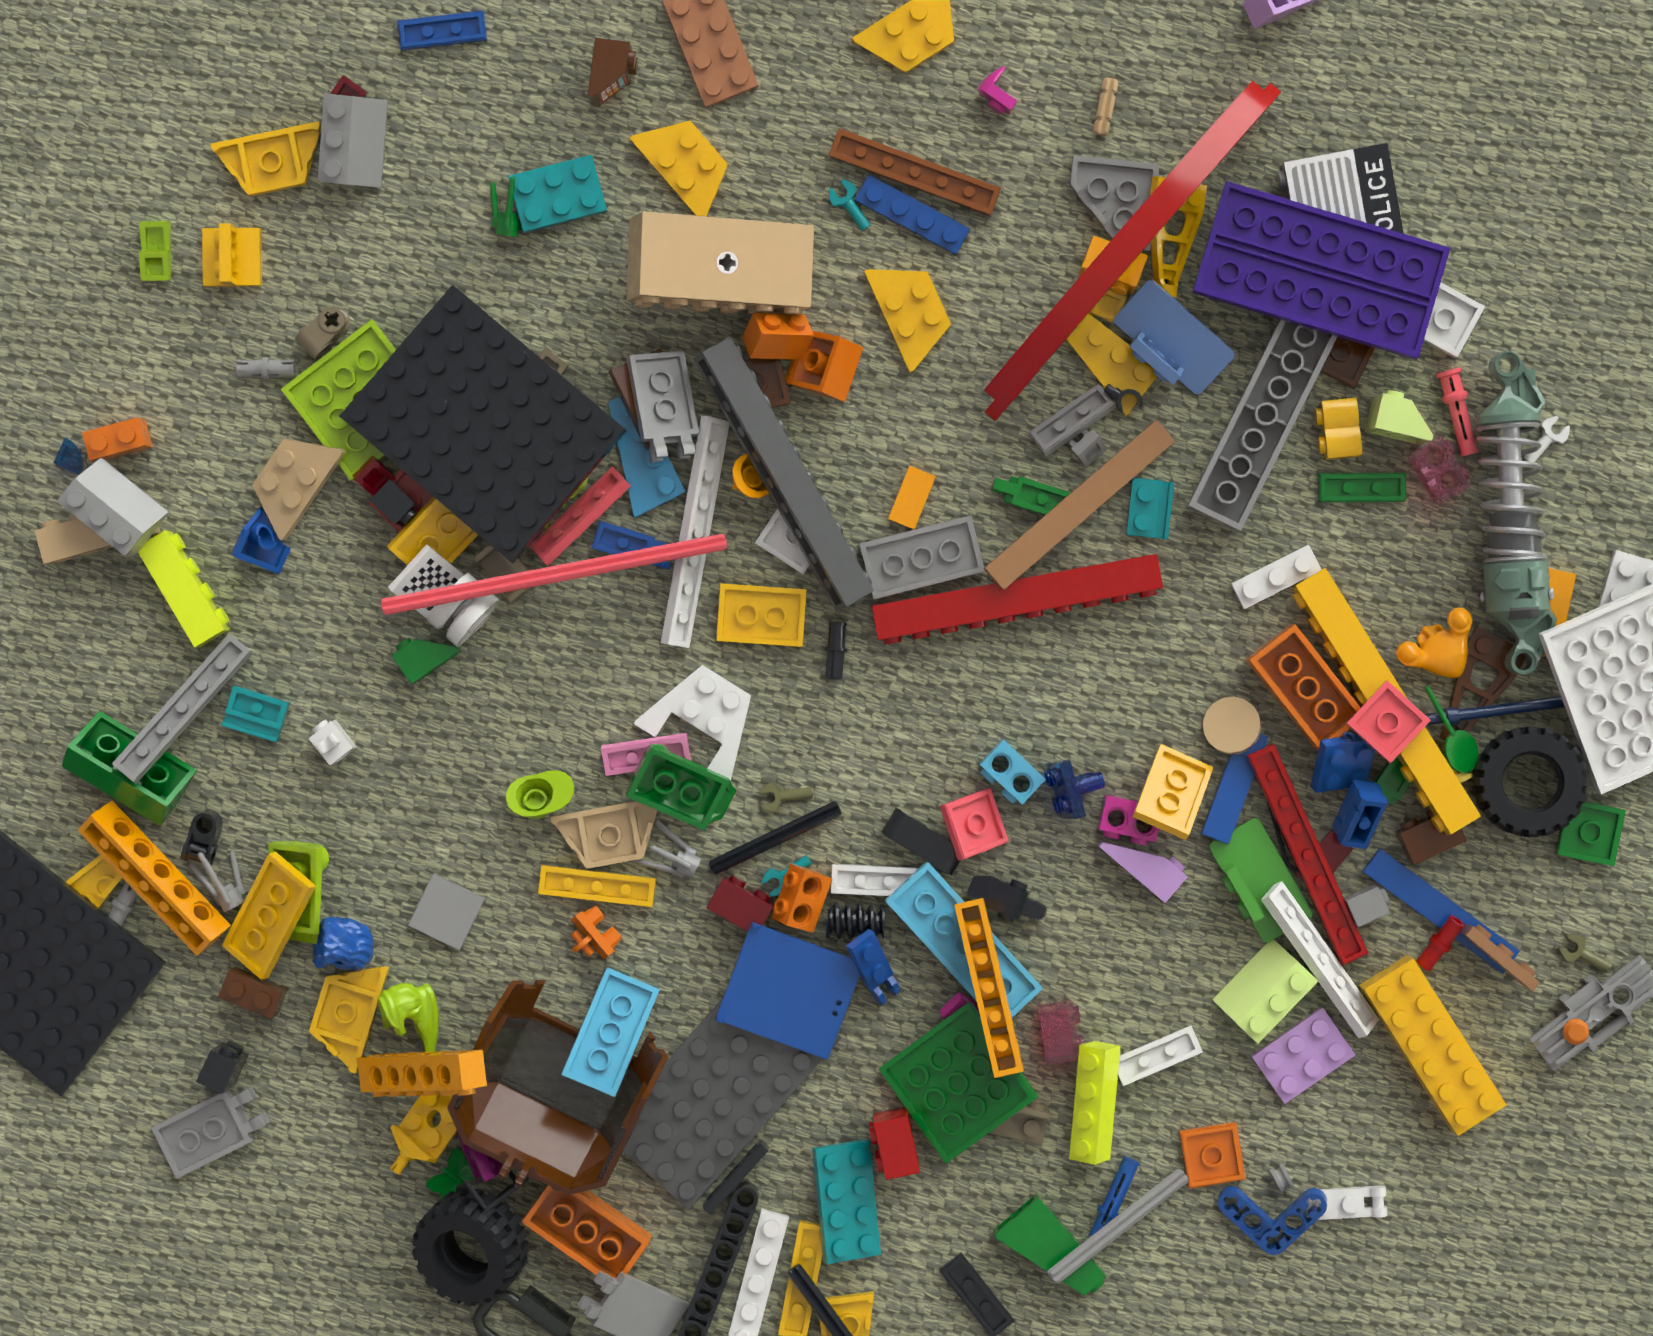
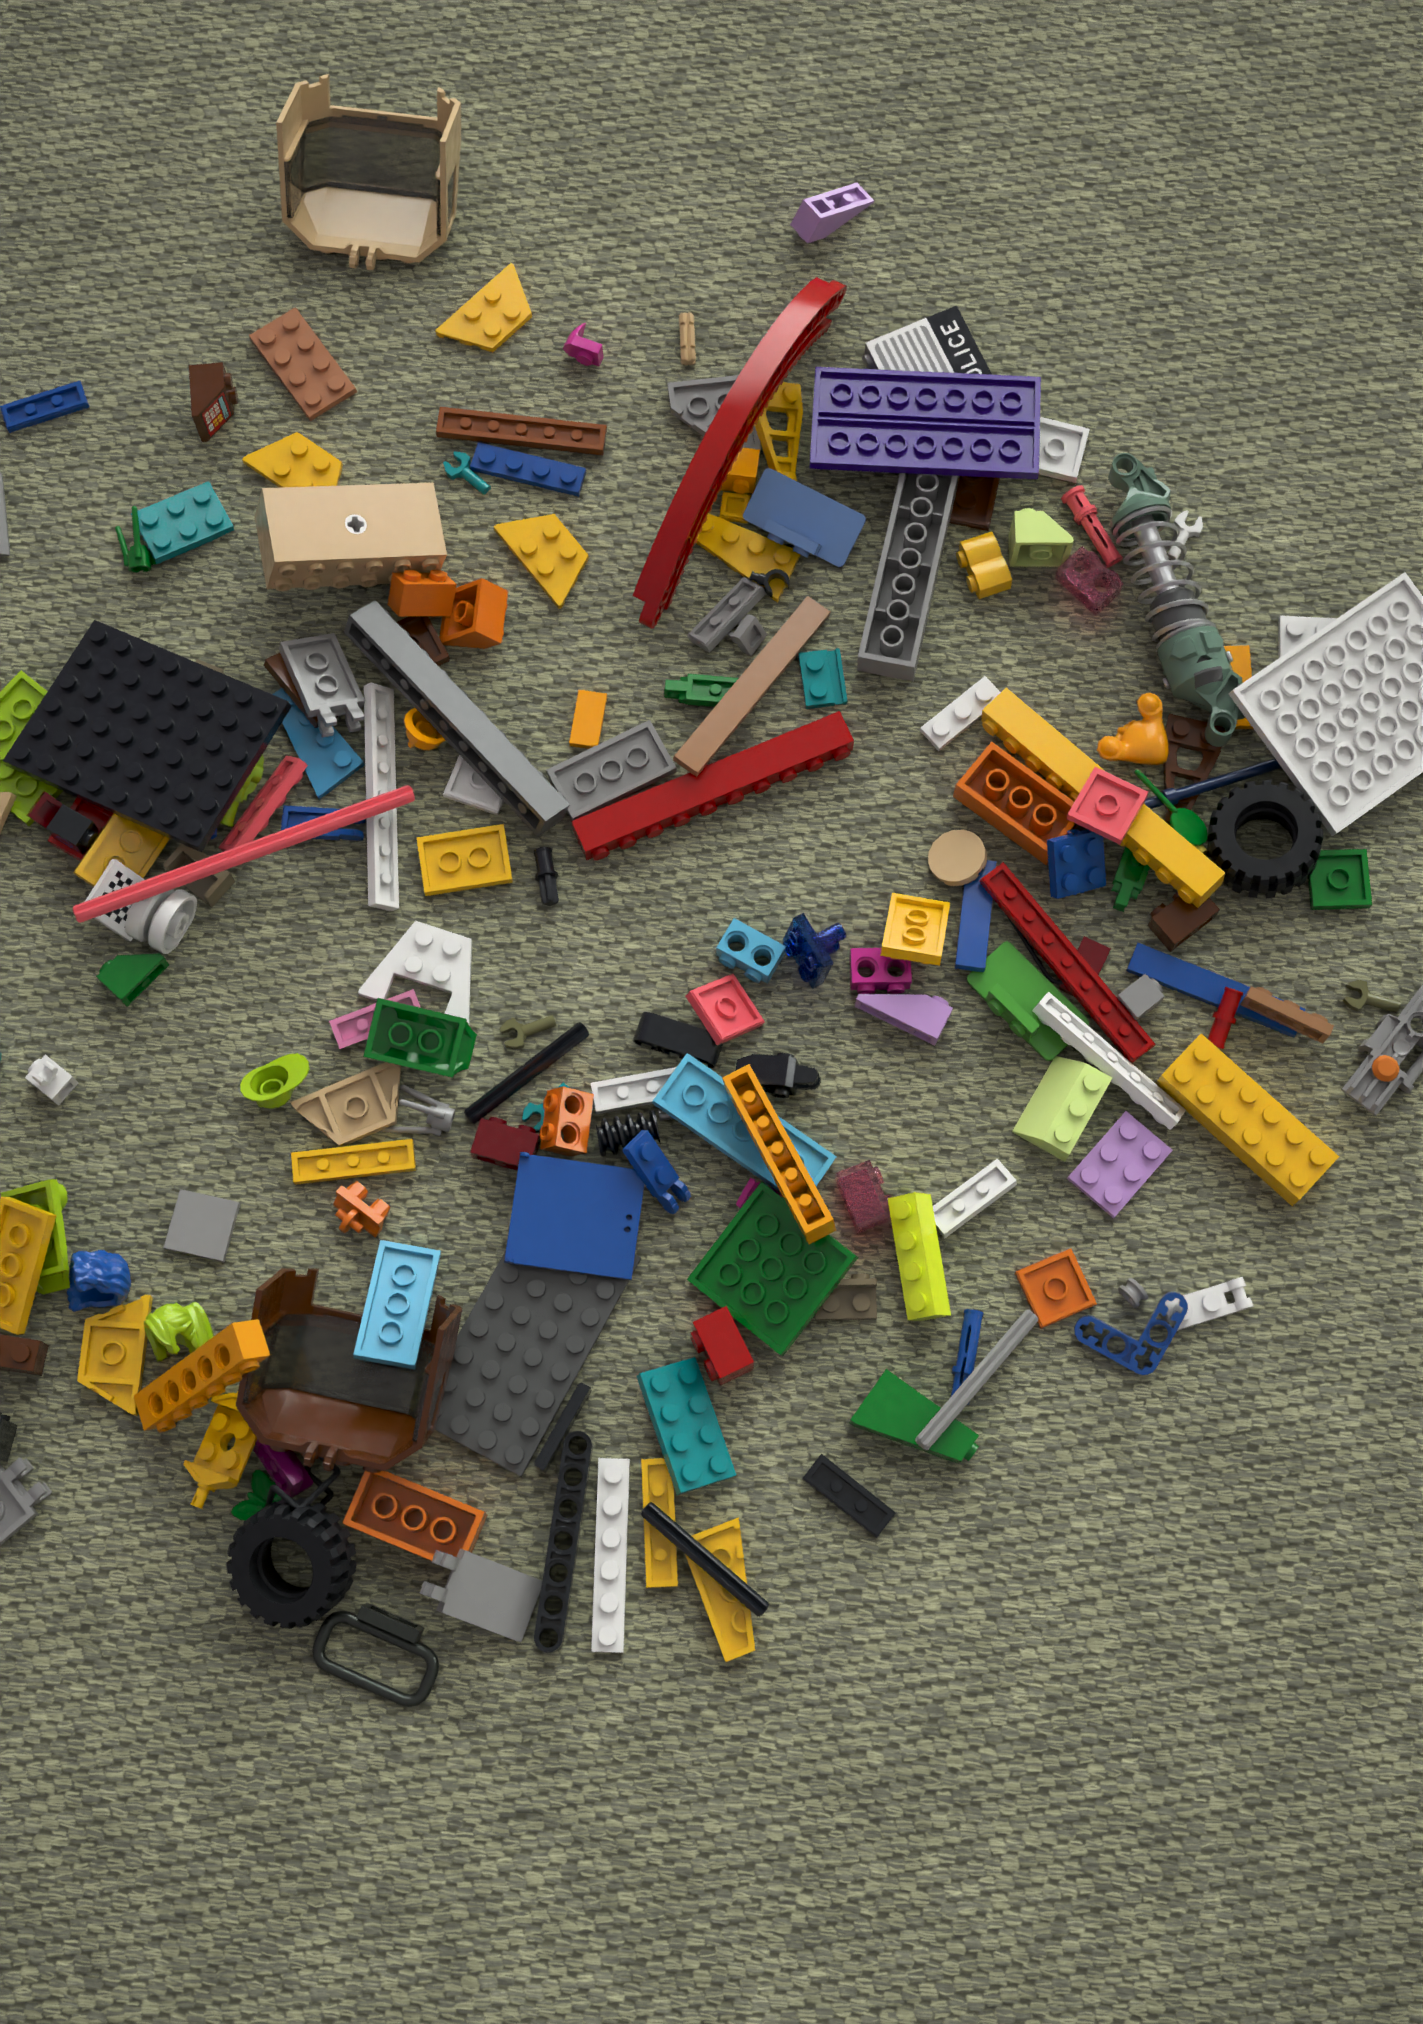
camera: 10 degrees left, 15 degrees down
(1360, 814) = (1106, 907): blue brick -> none
(1361, 487) = (1021, 615): green tile -> none

